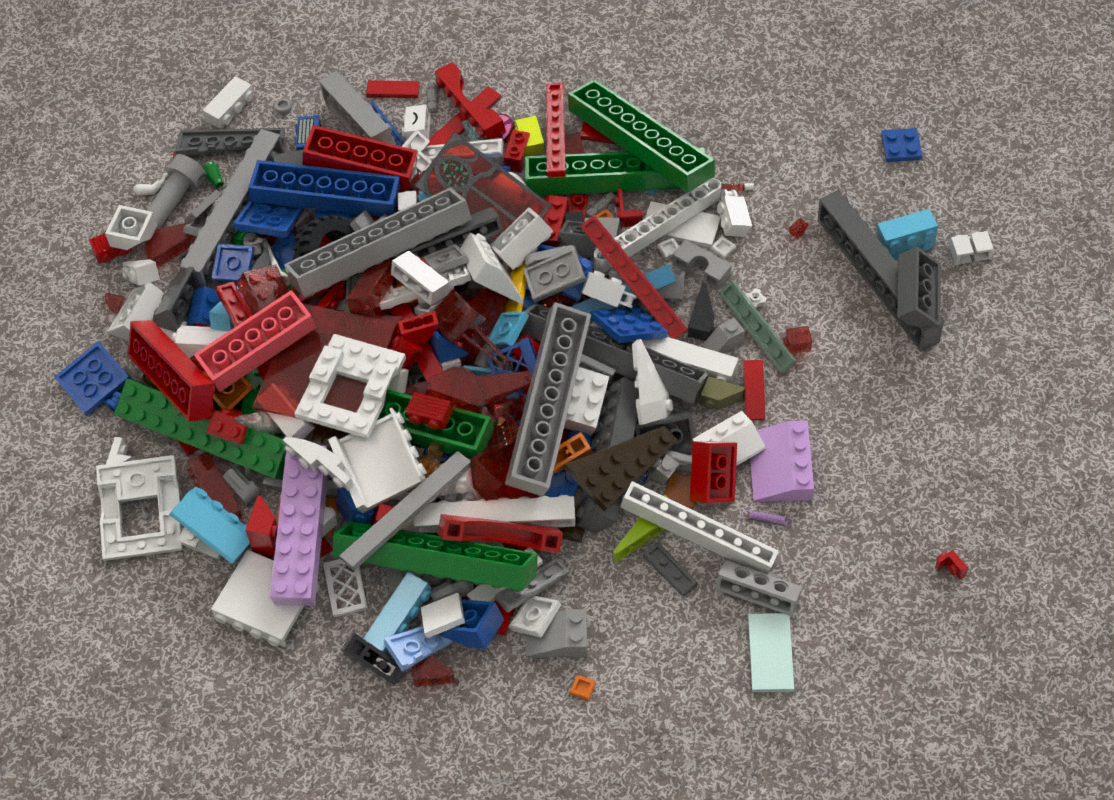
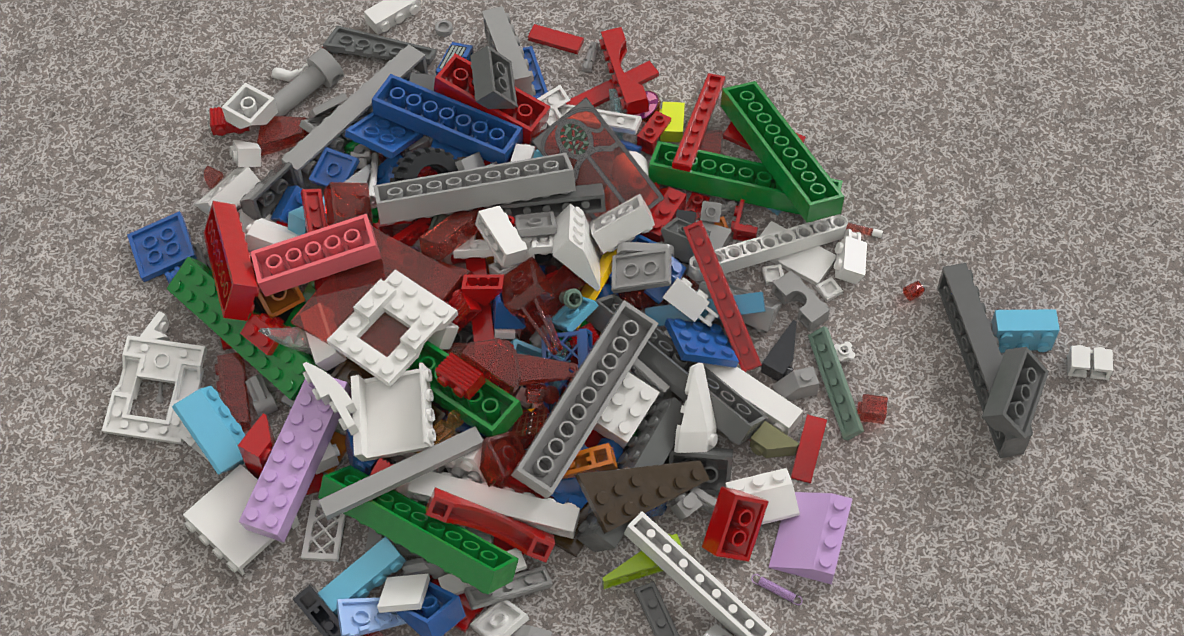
camera: 15 degrees right, 0 degrees up
(213, 174) = (351, 76): green cone -> none
(358, 139) = (493, 79): none -> dark grey slope
(416, 118) = (567, 75): white brick -> none
(502, 316) = (571, 298): none -> sand green cone
(595, 206) = (710, 212): none -> light grey bracket
(679, 490) = (694, 532): dark orange piece -> none
(901, 145) = (1052, 233): blue plate -> none

